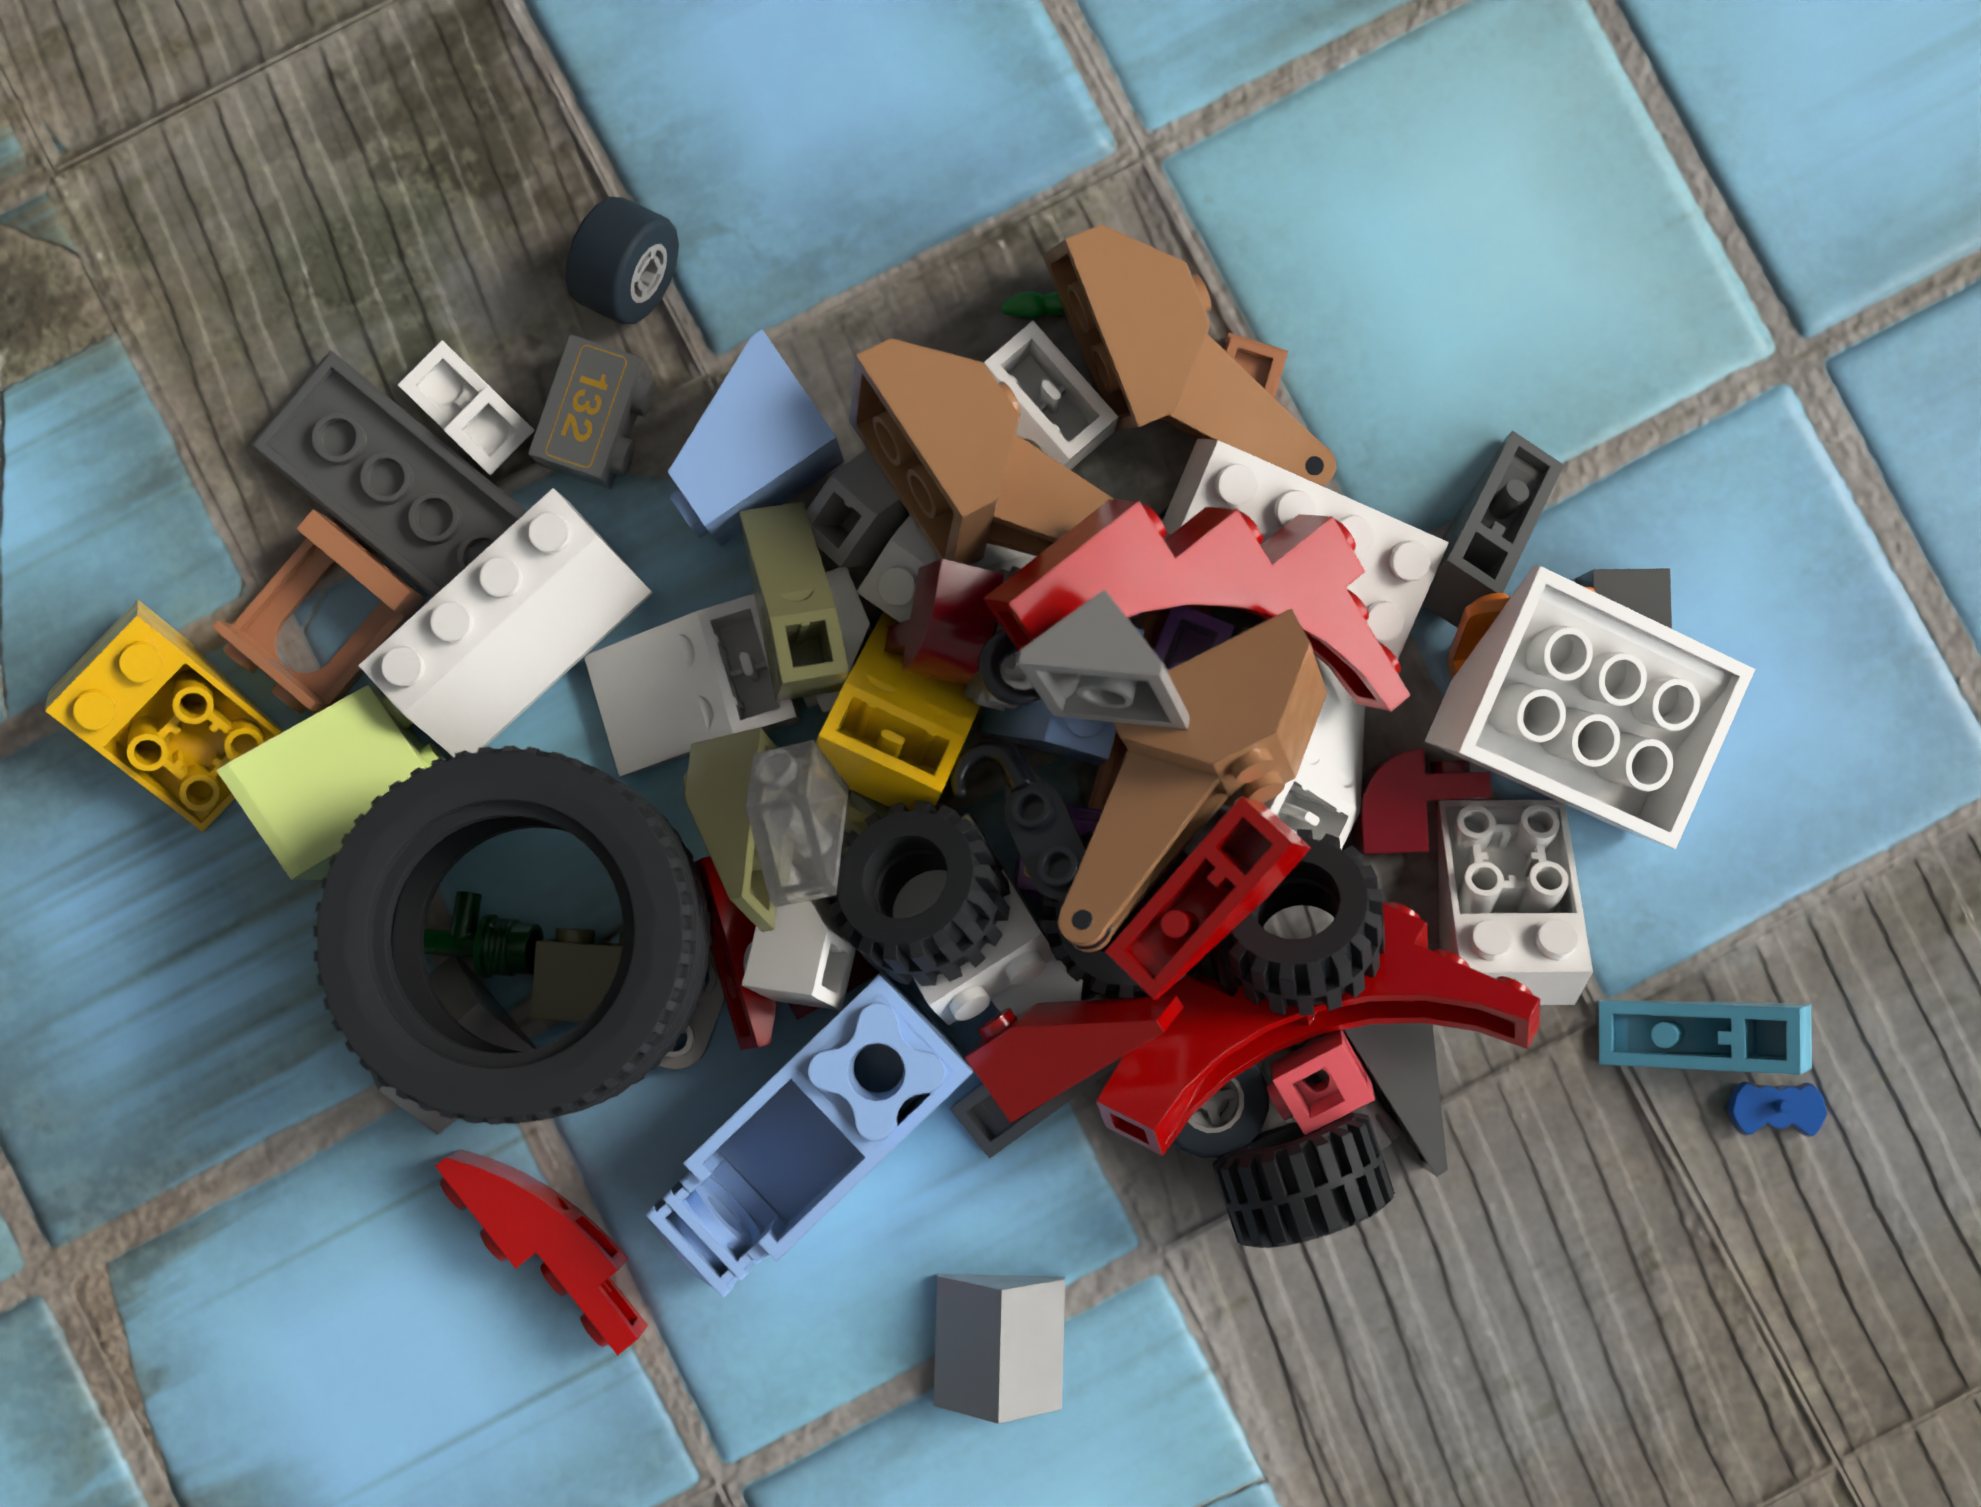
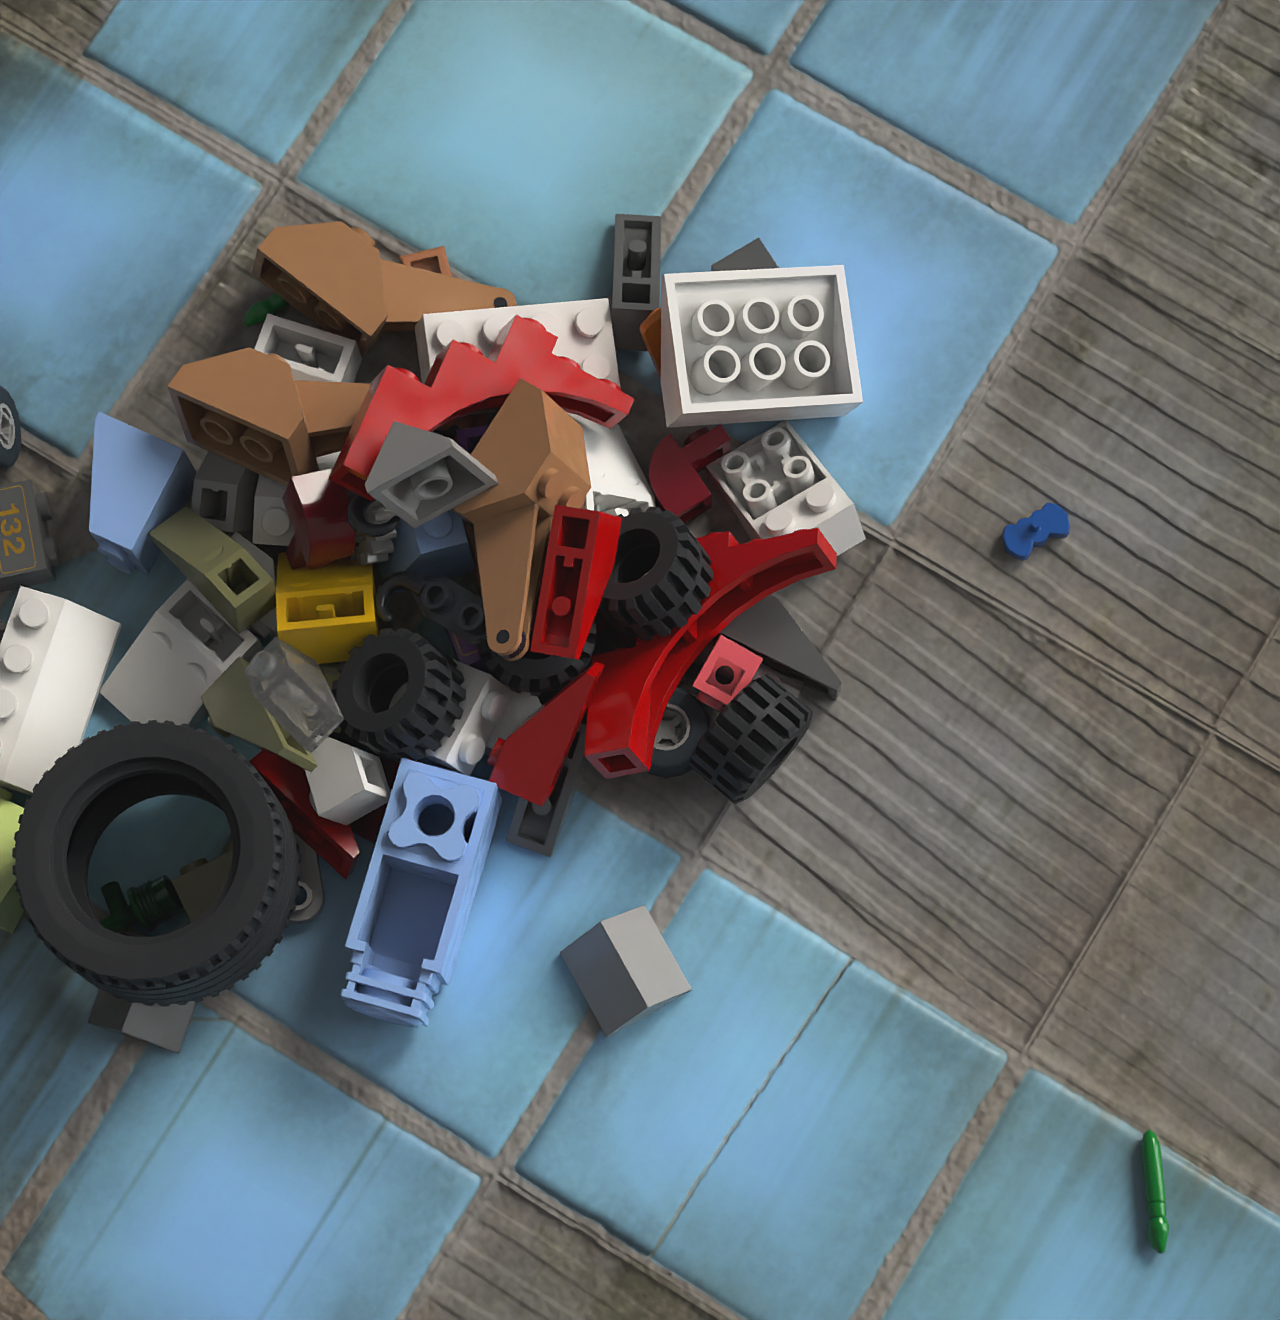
camera: 20 degrees left, 10 degrees down
(531, 1218) = (271, 1067): red slope -> none
(1706, 1035) = (960, 508): medium azure slope -> none

